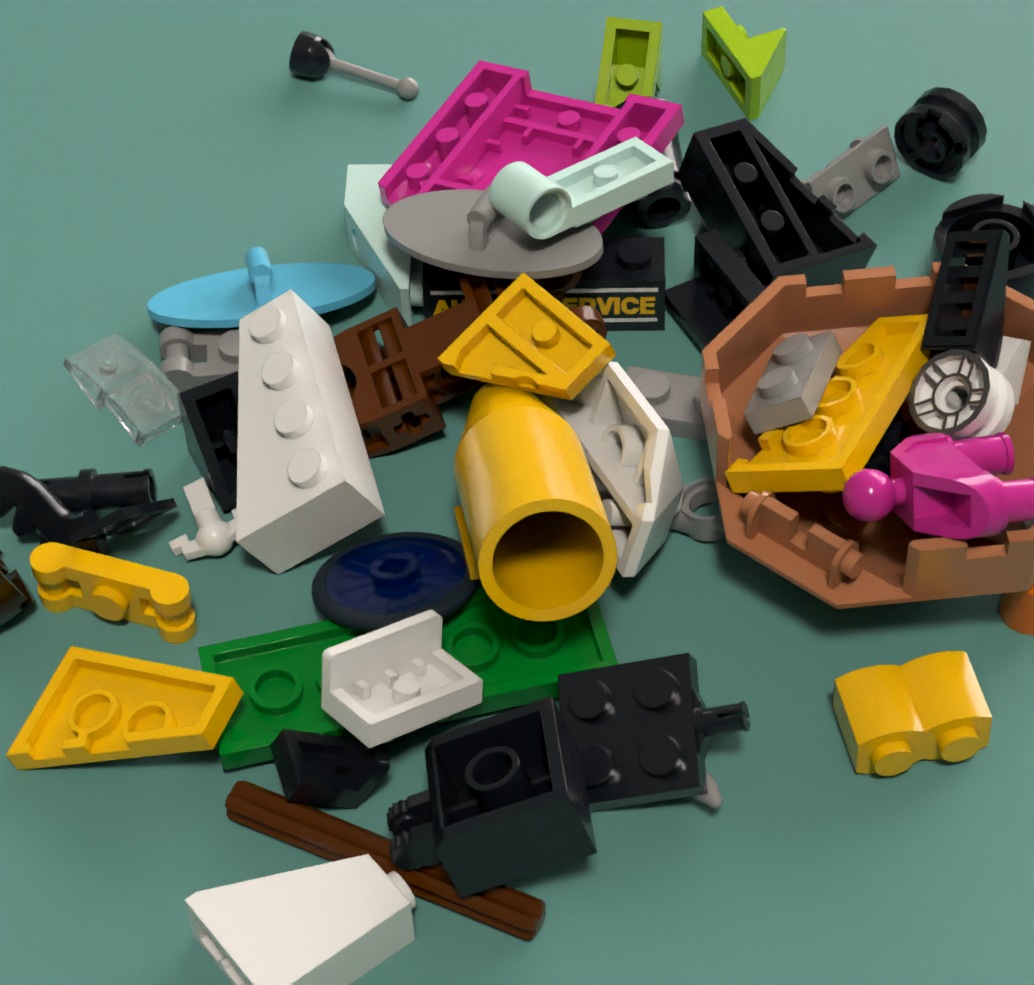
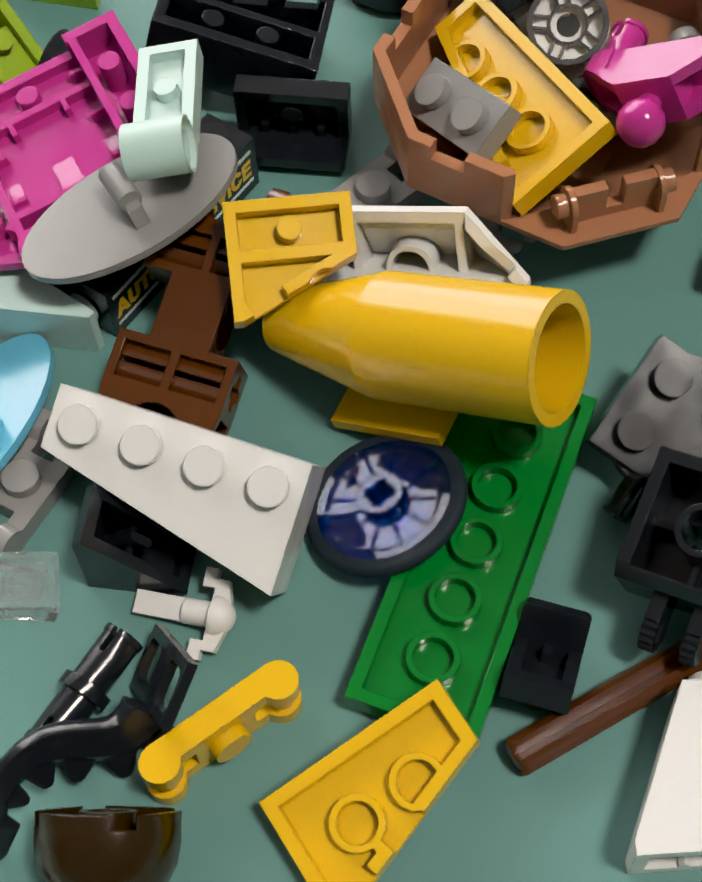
camera: 55 degrees left, 10 degrees up
(395, 680) = (536, 558): white bracket -> none

